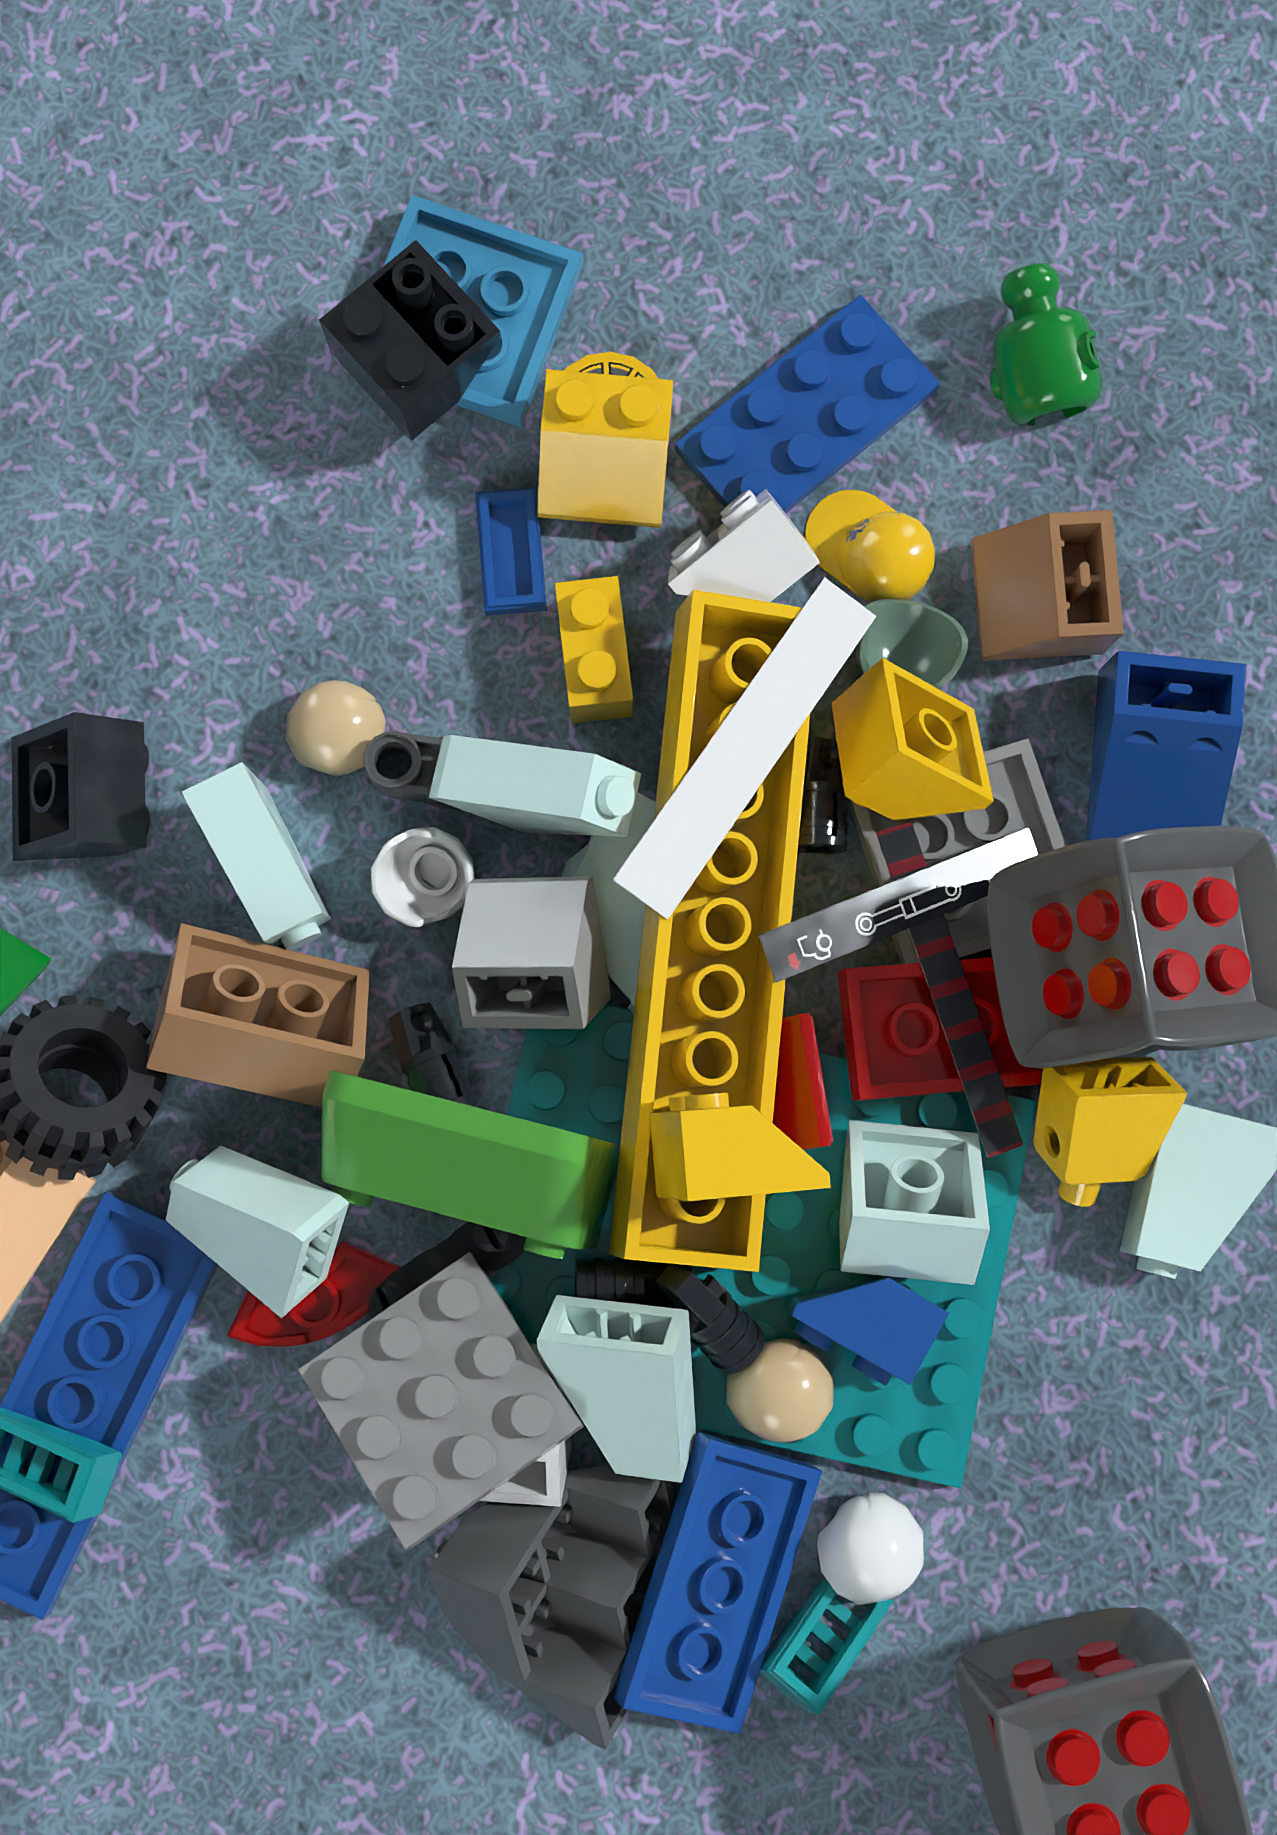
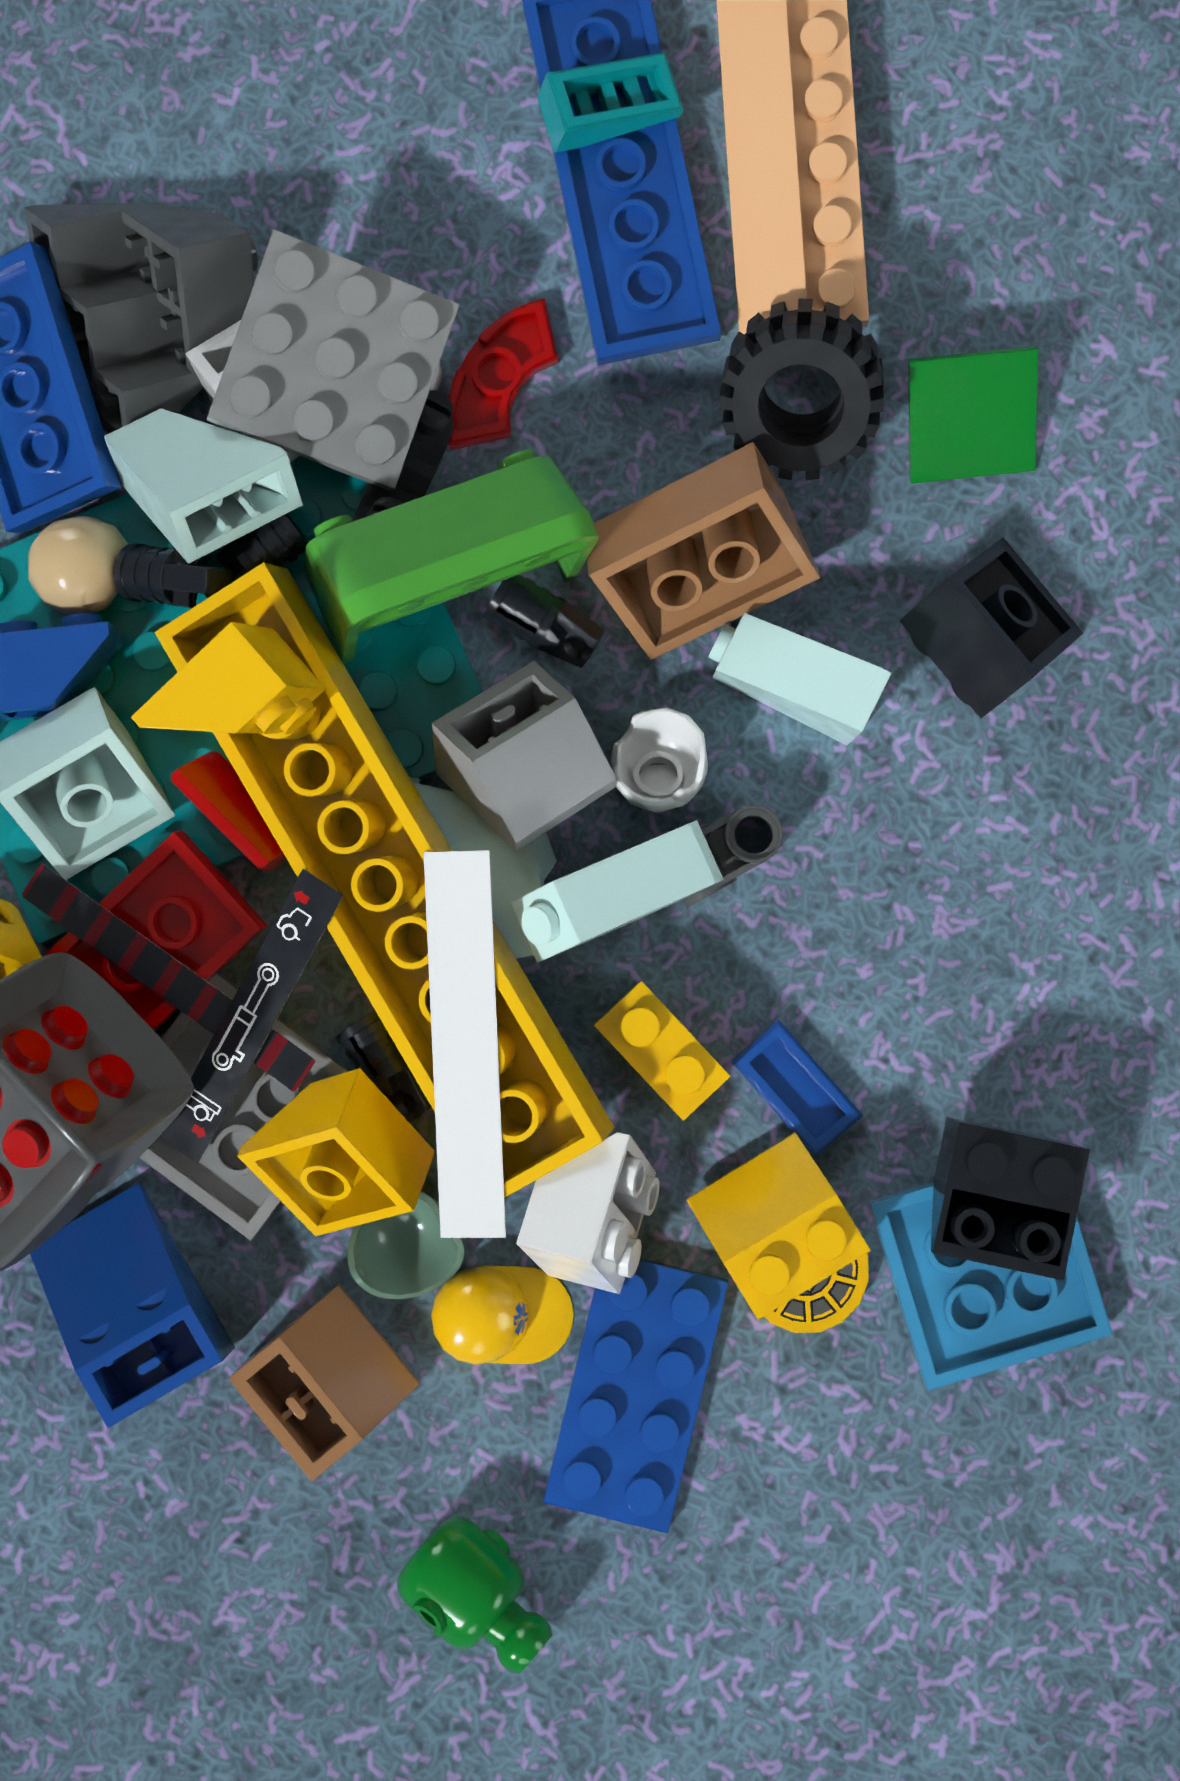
camera: 150 degrees right, 5 degrees up
(258, 1224) = (580, 392): light aqua slope -> none
(333, 726) = (827, 832): tan hair -> none

